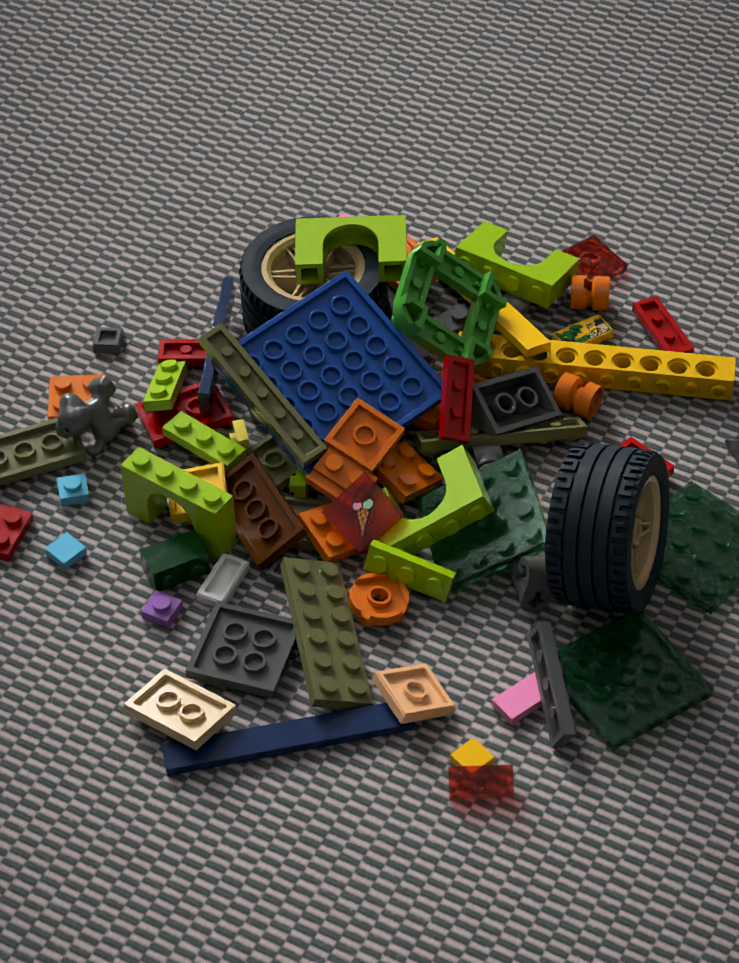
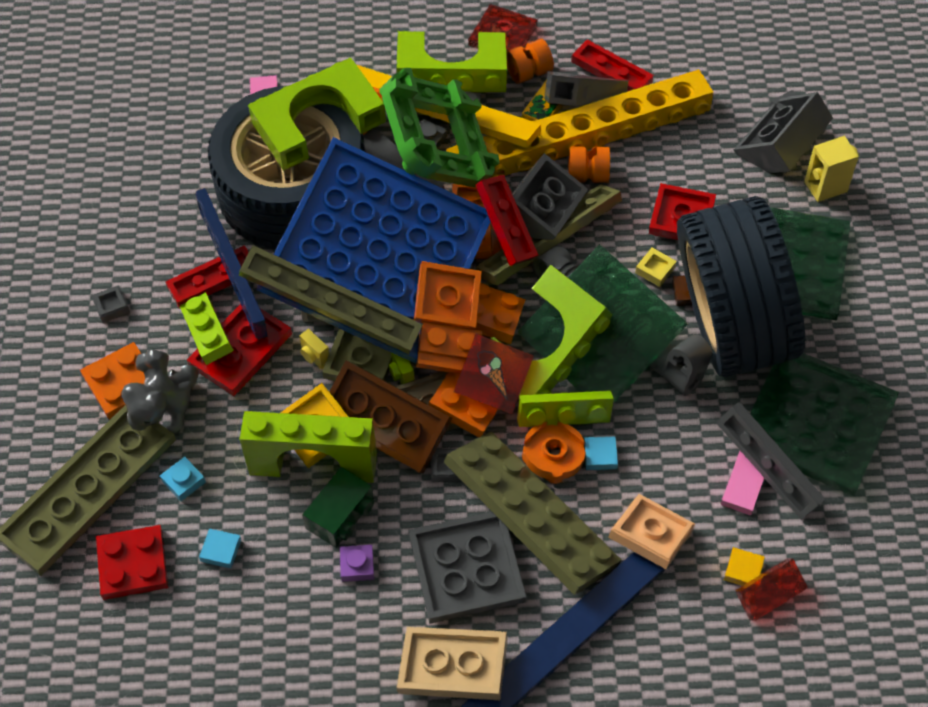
camera: 30 degrees left, 10 degrees up
(203, 441) = (284, 368): lime plate -> none
(223, 580) = (394, 503): white tile -> none
(418, 620) = (600, 453): none -> medium azure tile
(614, 331) = (581, 89): none -> dark grey slope

